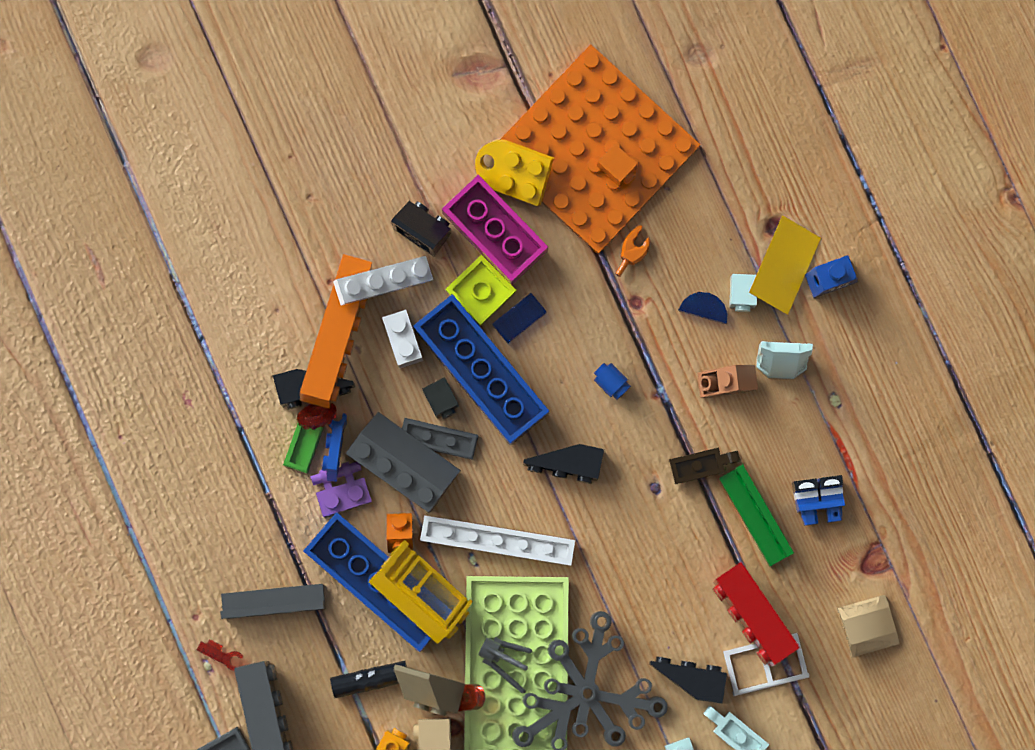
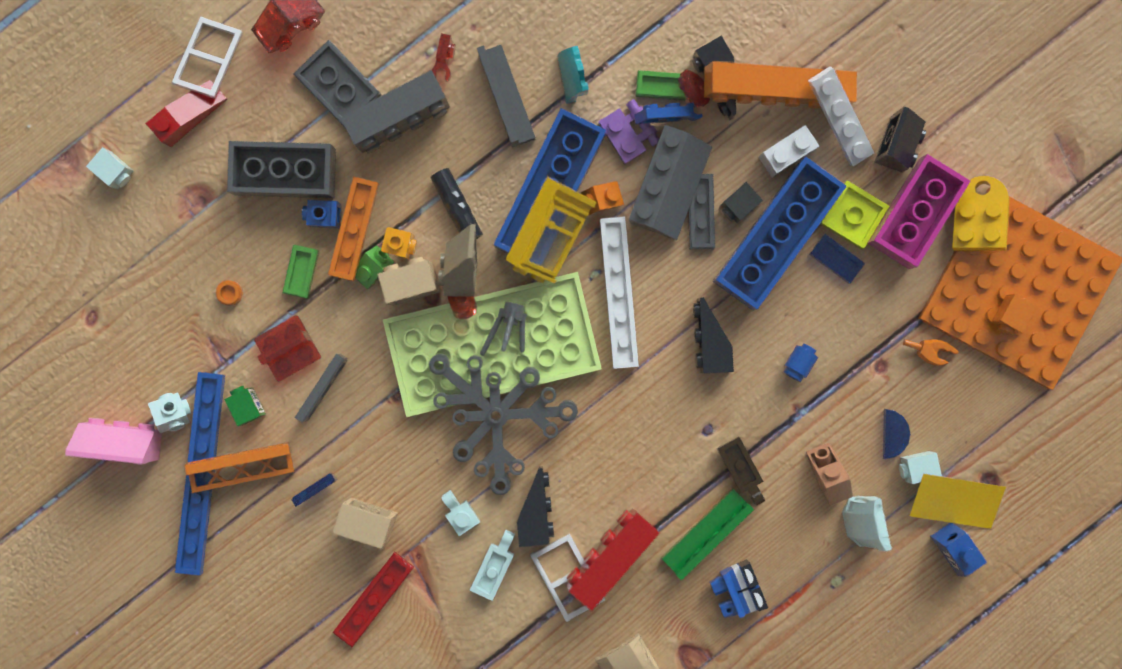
camera: 75 degrees right, 5 degrees up
(270, 530) = (572, 74): none -> teal slope

